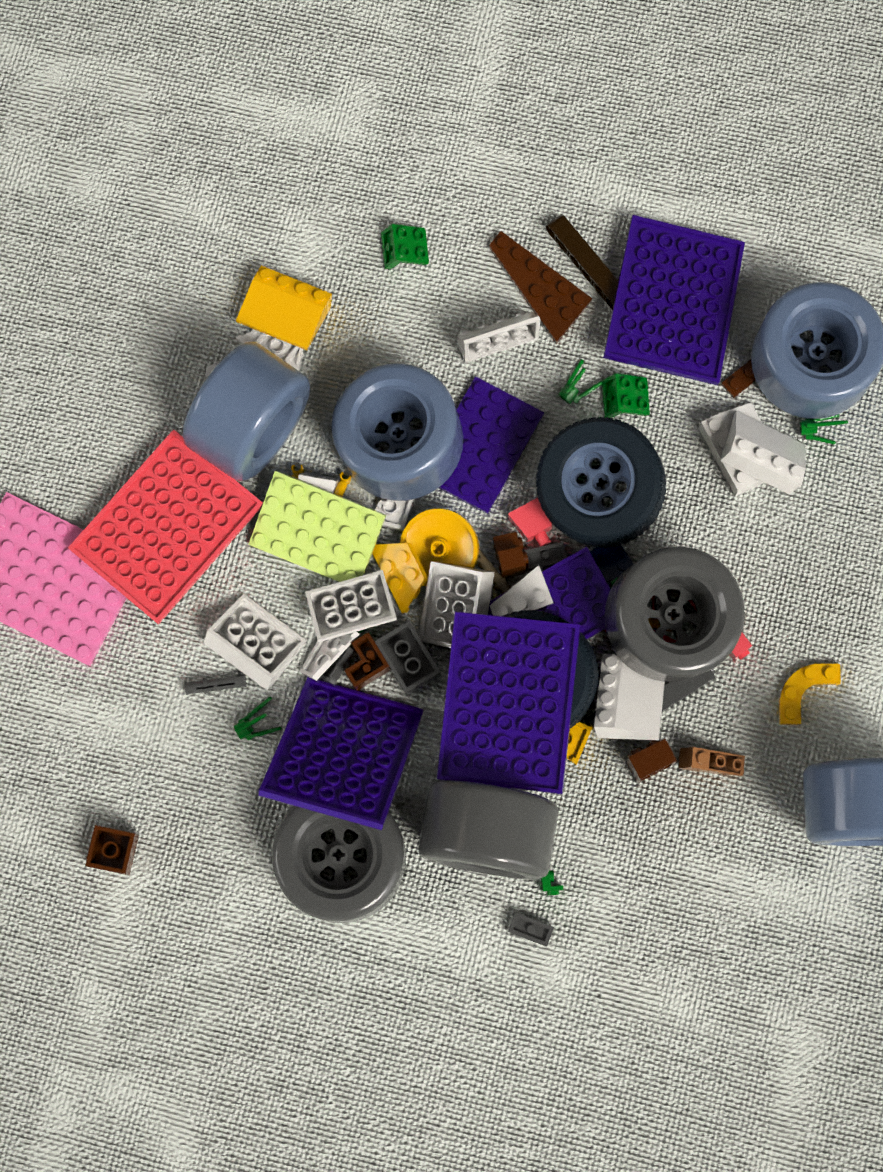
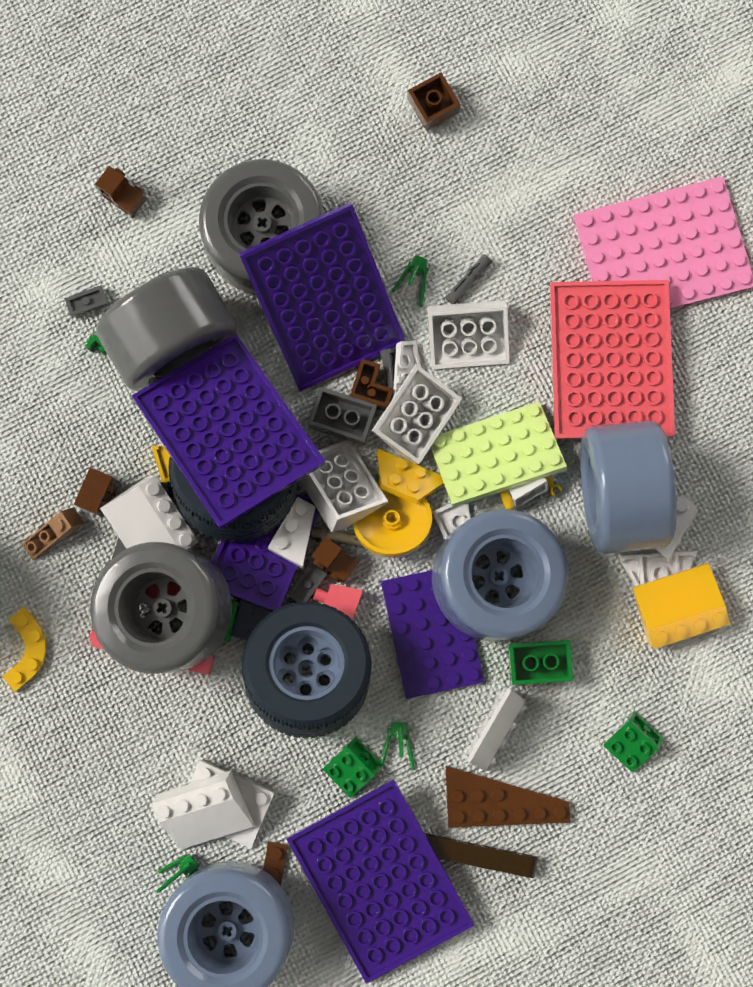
camera: 135 degrees right, 5 degrees up
(422, 349) = (540, 662): none -> green brick
(427, 995) = (117, 190): none -> reddish brown brick

